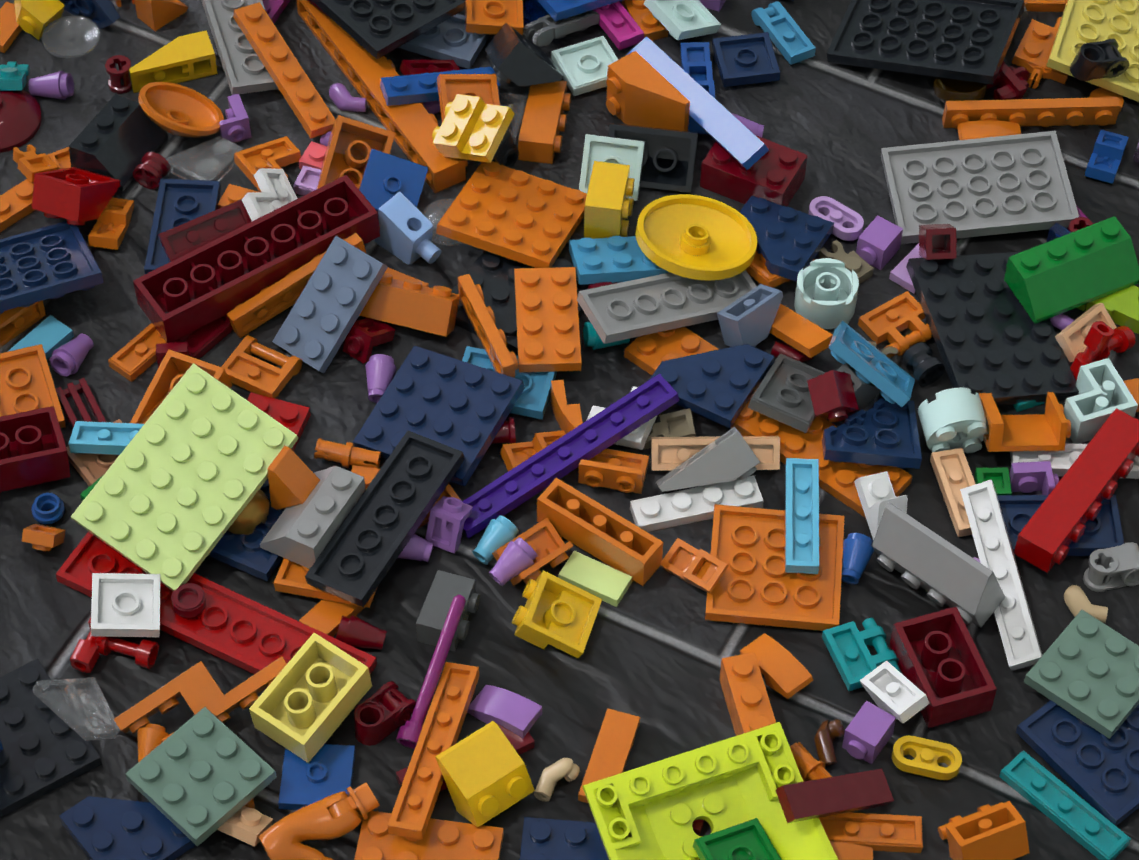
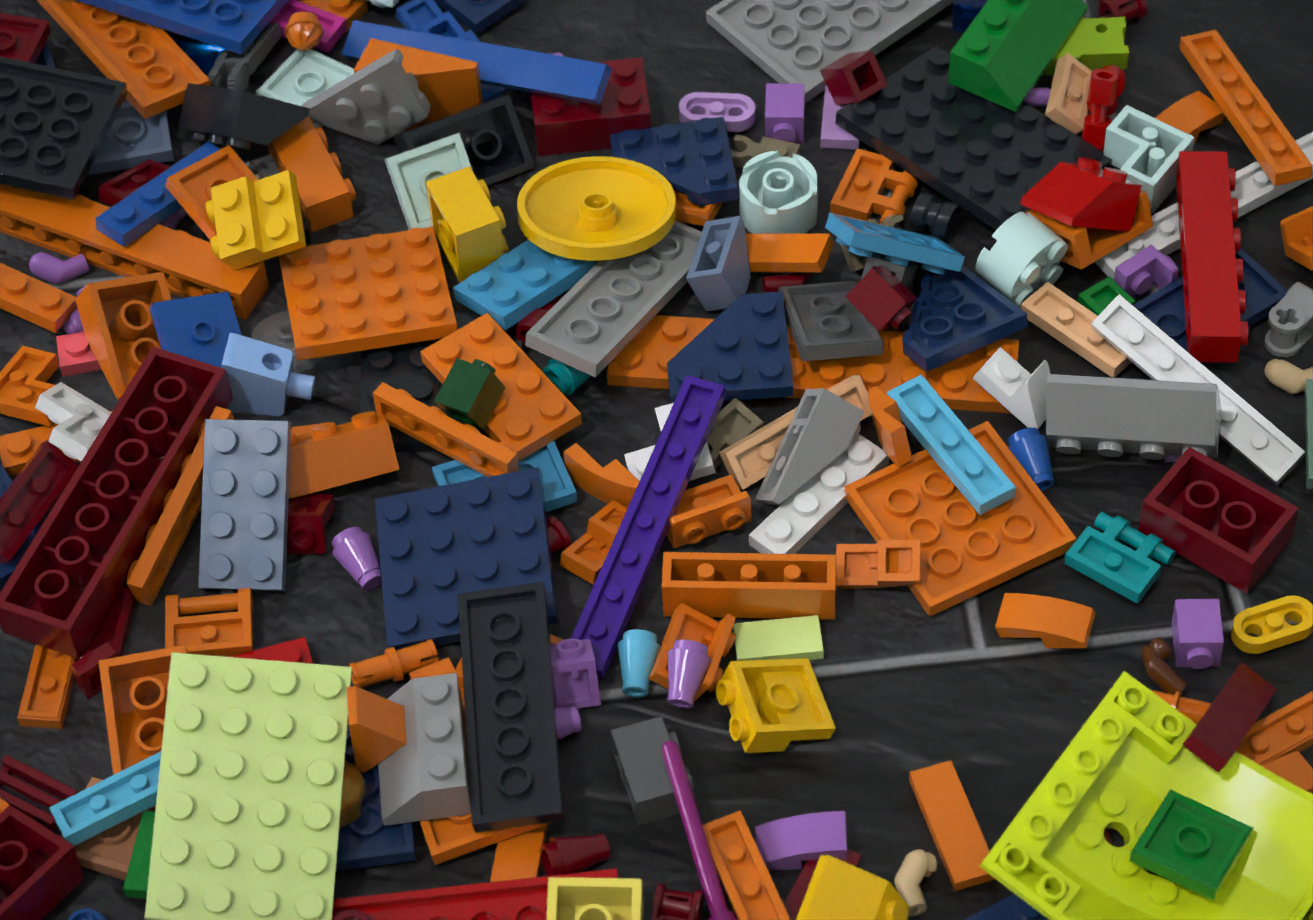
camera: 30 degrees left, 0 degrees up
(306, 180) = (91, 382): lavender tile -> none
(516, 309) = (470, 392): none -> dark green brick
(607, 26) = (303, 30): none -> orange plate
(608, 93) = (372, 101): none -> light grey wing
(745, 693) = (1050, 674): orange brick -> none
(772, 481) = (889, 427): none -> orange slope
(894, 692) = (1195, 574): white slope -> none
(1025, 403) = (1085, 196): none -> red slope

